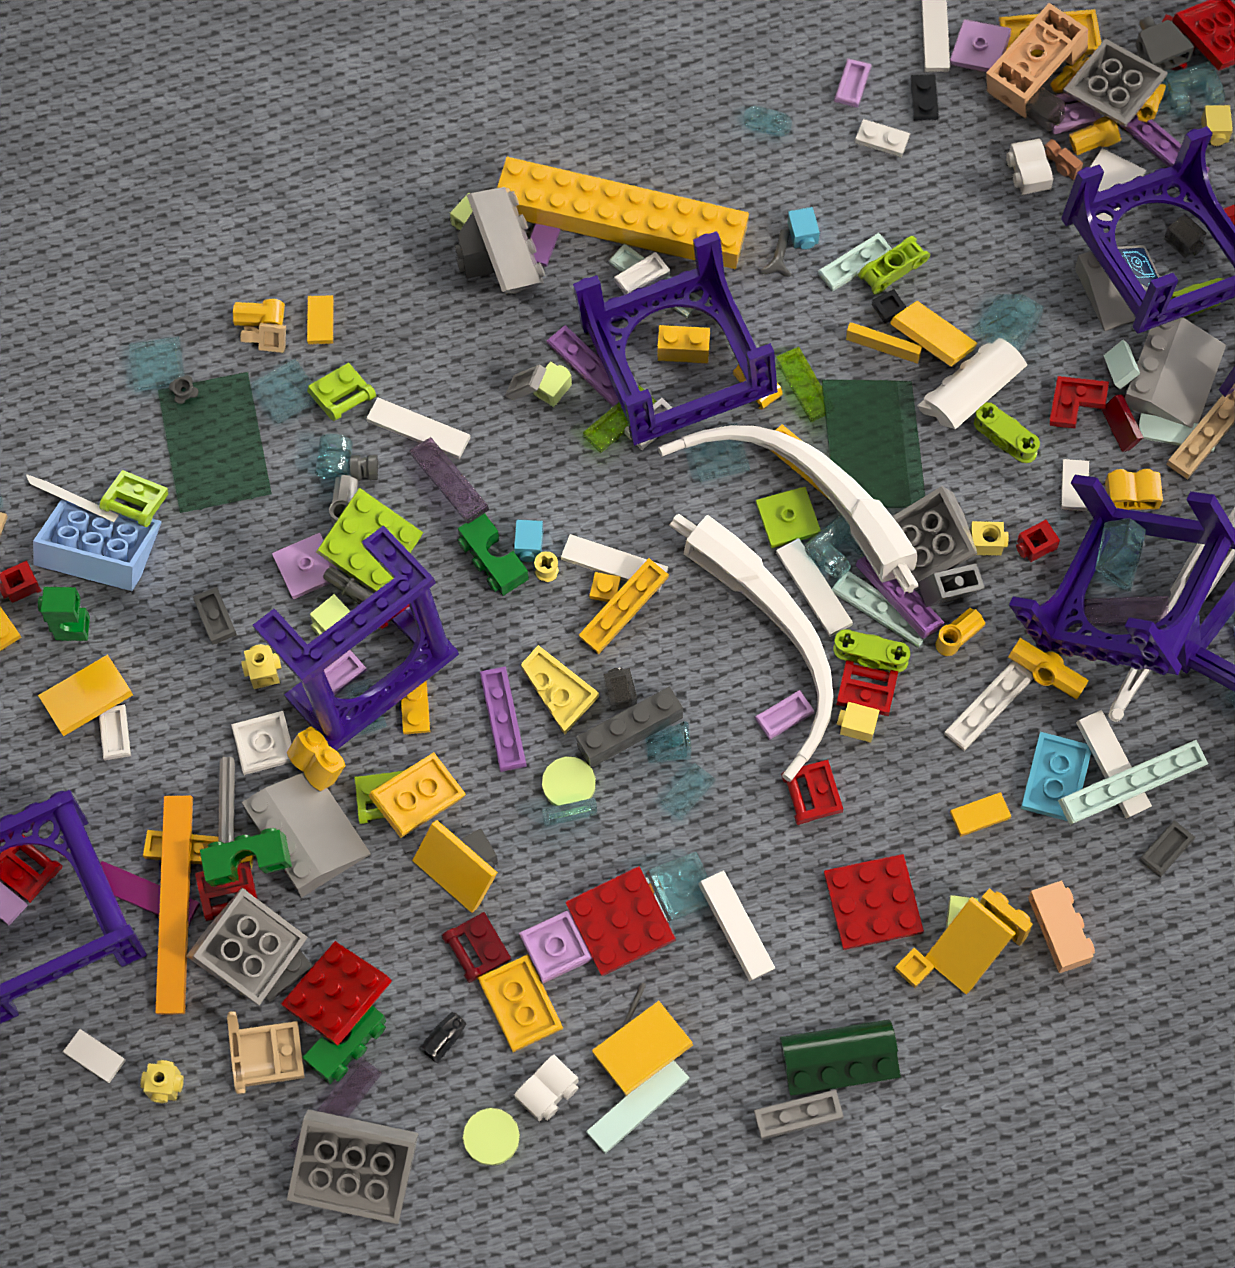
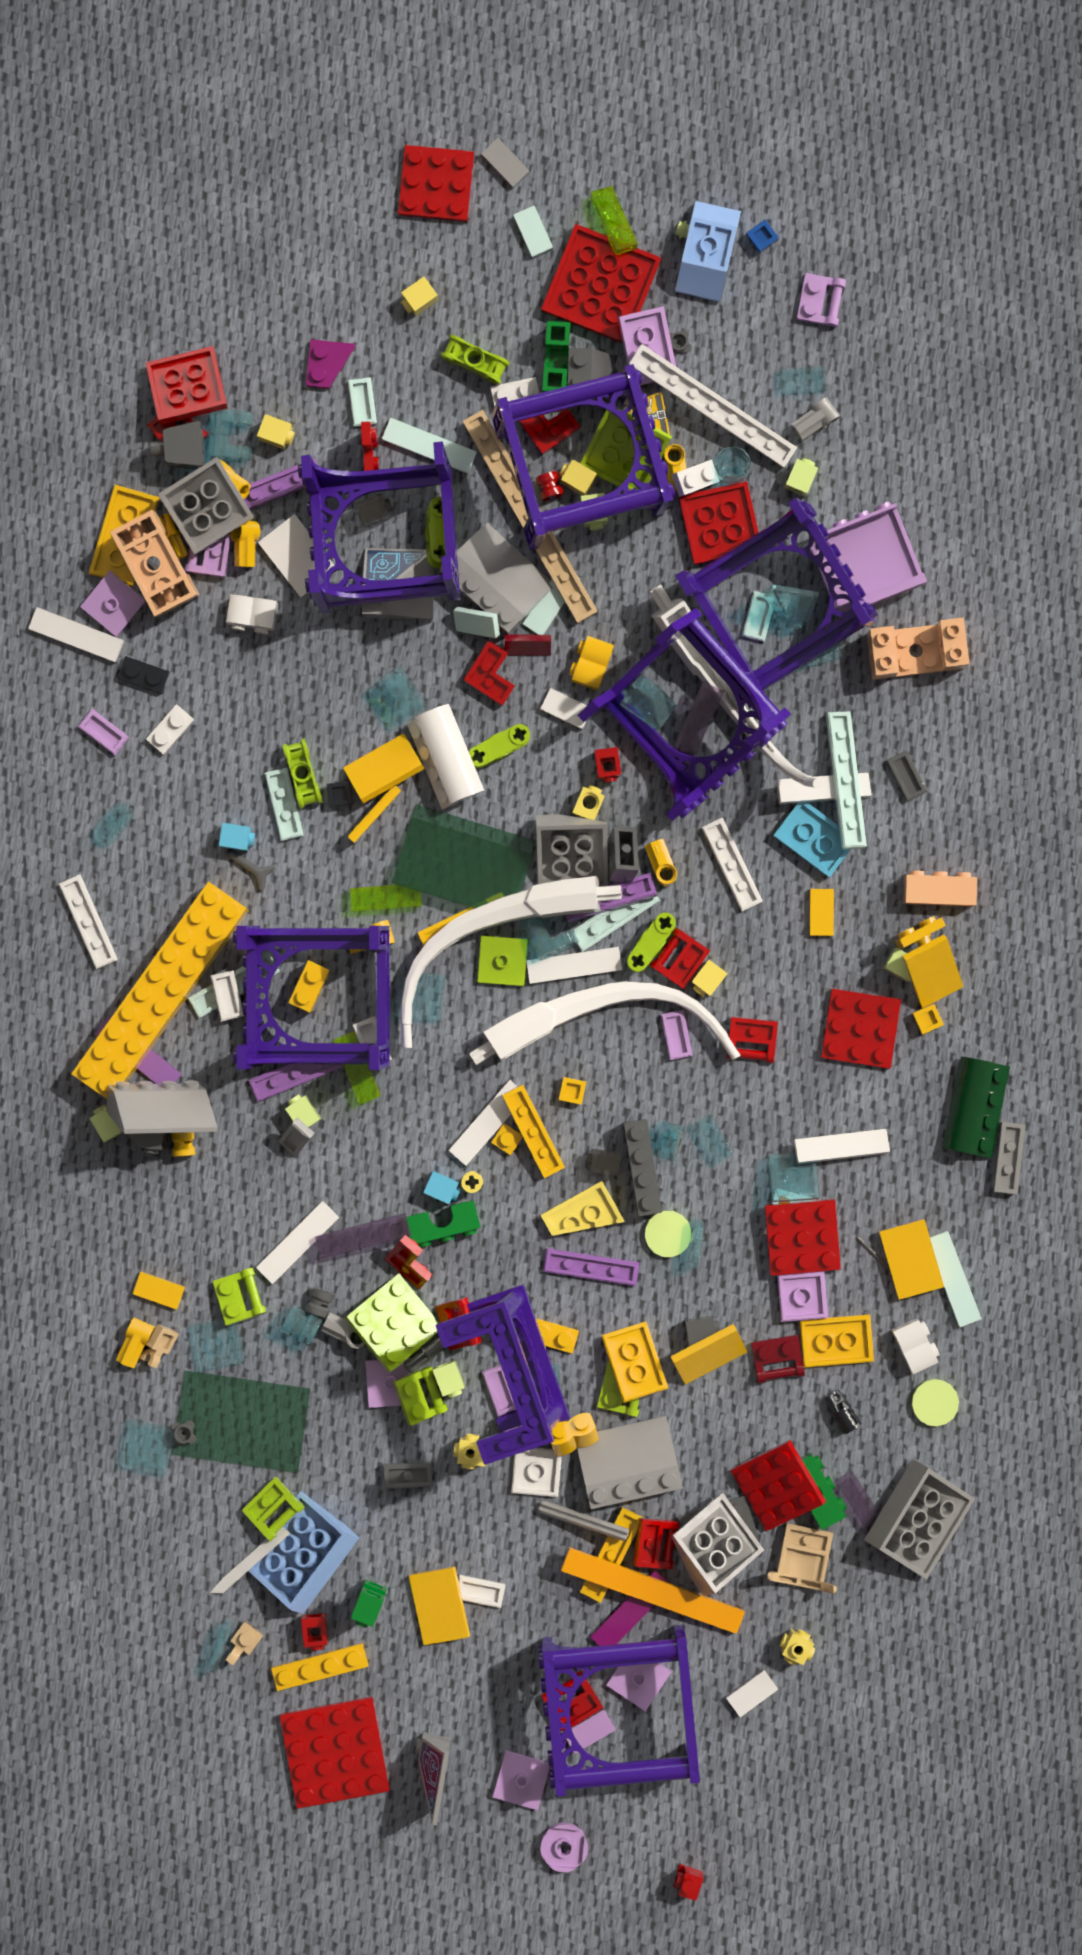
camera: 75 degrees left, 20 degrees up
(68, 926) = (639, 1682): none -> lavender plate
(222, 859) = (646, 1502): green arch -> none
(295, 590) = (412, 1397): none -> lime plate
(440, 526) = (403, 1260): none -> red plate
(477, 287) = (182, 1144): none -> yellow wheel
(661, 133) = (88, 921): none -> white tile
(682, 631) = (572, 1090): none -> yellow plate
(1045, 109) = (206, 577): clear smoke brick -> none
(1048, 668) = (722, 805): yellow piece -> none
(1066, 162) = (262, 580): nougat plate -> none

